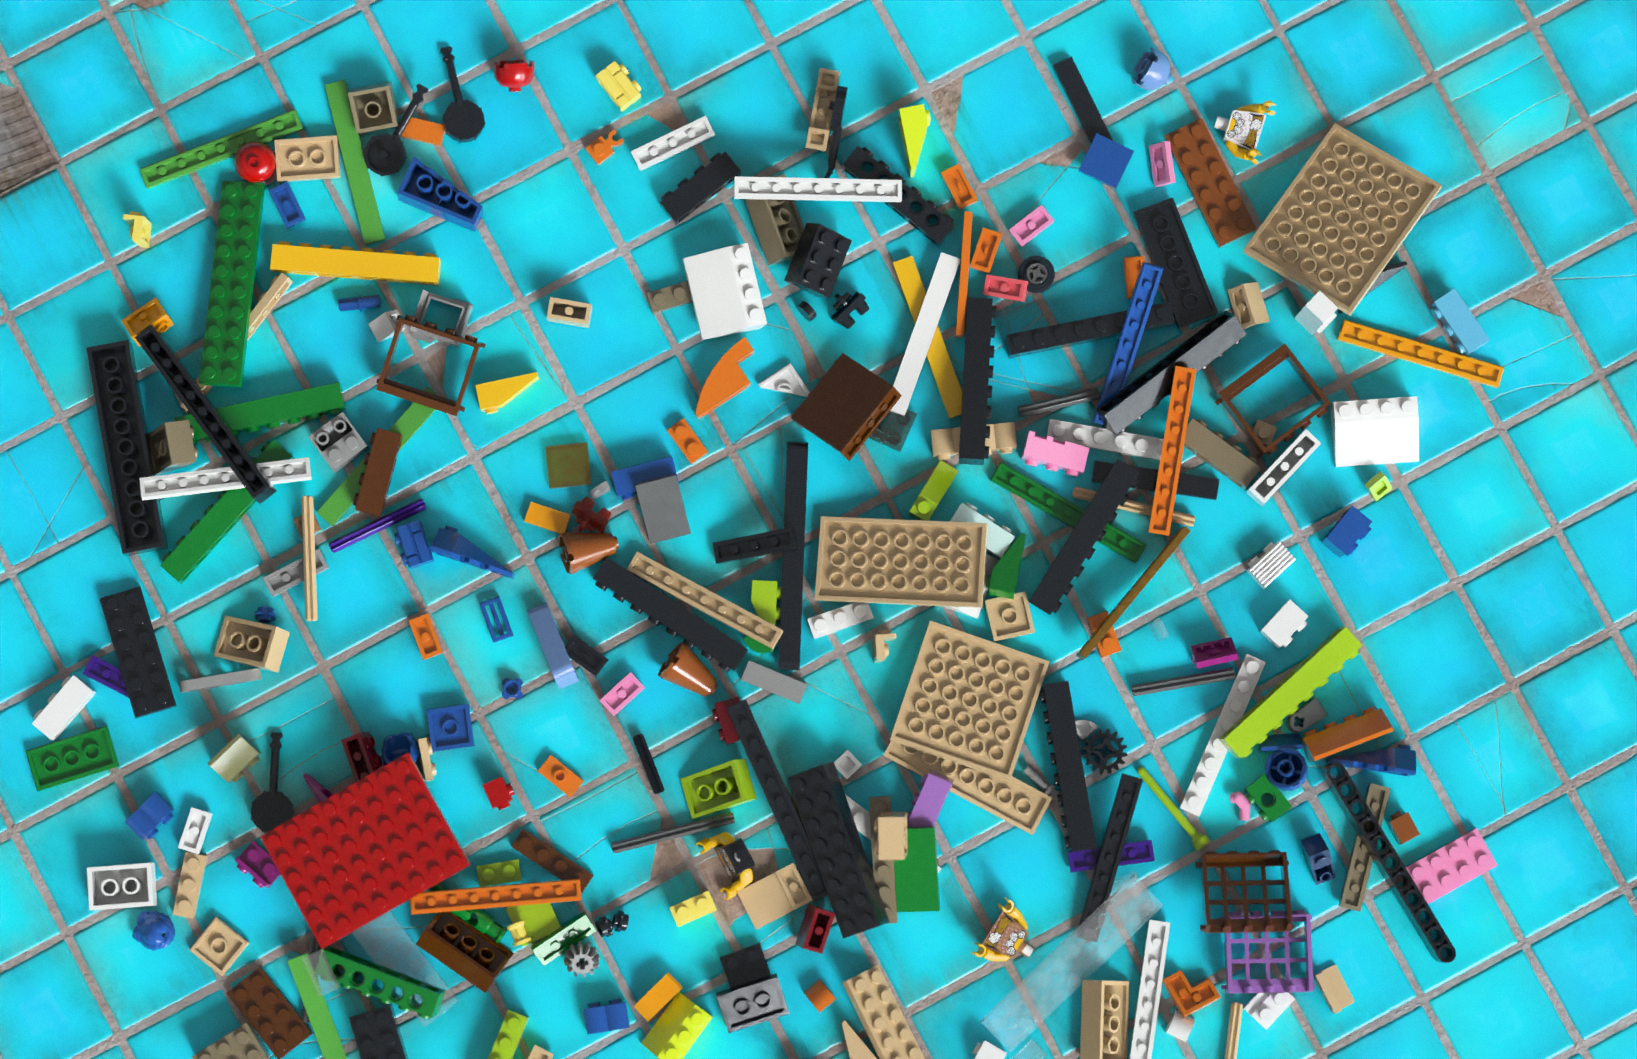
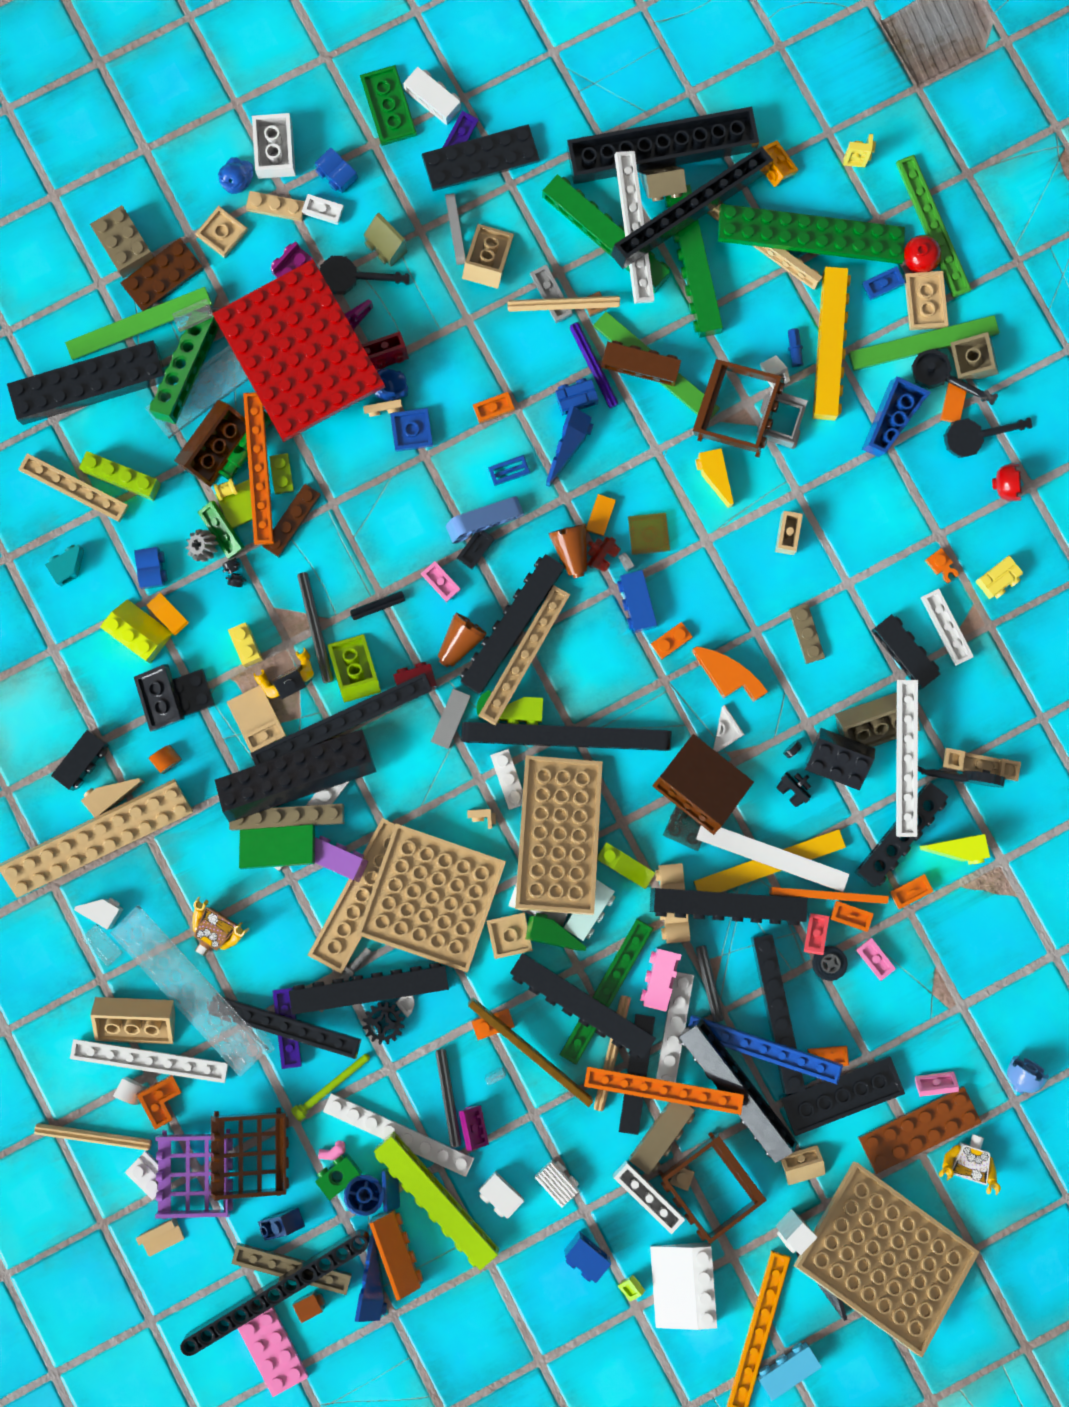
camera: 95 degrees right, 0 degrees up
(265, 614) = (513, 267): blue plate -> none
(338, 442) = (668, 329): light grey slope -> none
(499, 793) = (352, 472): red brick -> none
(507, 693) = (446, 479): blue plate -> none
(560, 776) = (367, 527): orange plate -> none
(662, 508) = (609, 617): tile -> none
(724, 291) = (809, 673): white slope -> none
(755, 545) = (575, 701): black plate -> none
(815, 928) = (224, 754): dark red brick -> none
(847, 764) = (374, 785): white plate -> none
(891, 836) = (303, 823): tan brick -> none
(1080, 99) = (980, 1015): black tile -> none
(1106, 161) = (938, 1030): blue tile -> none
(1308, 714) = (416, 1218): dark grey piece -> none

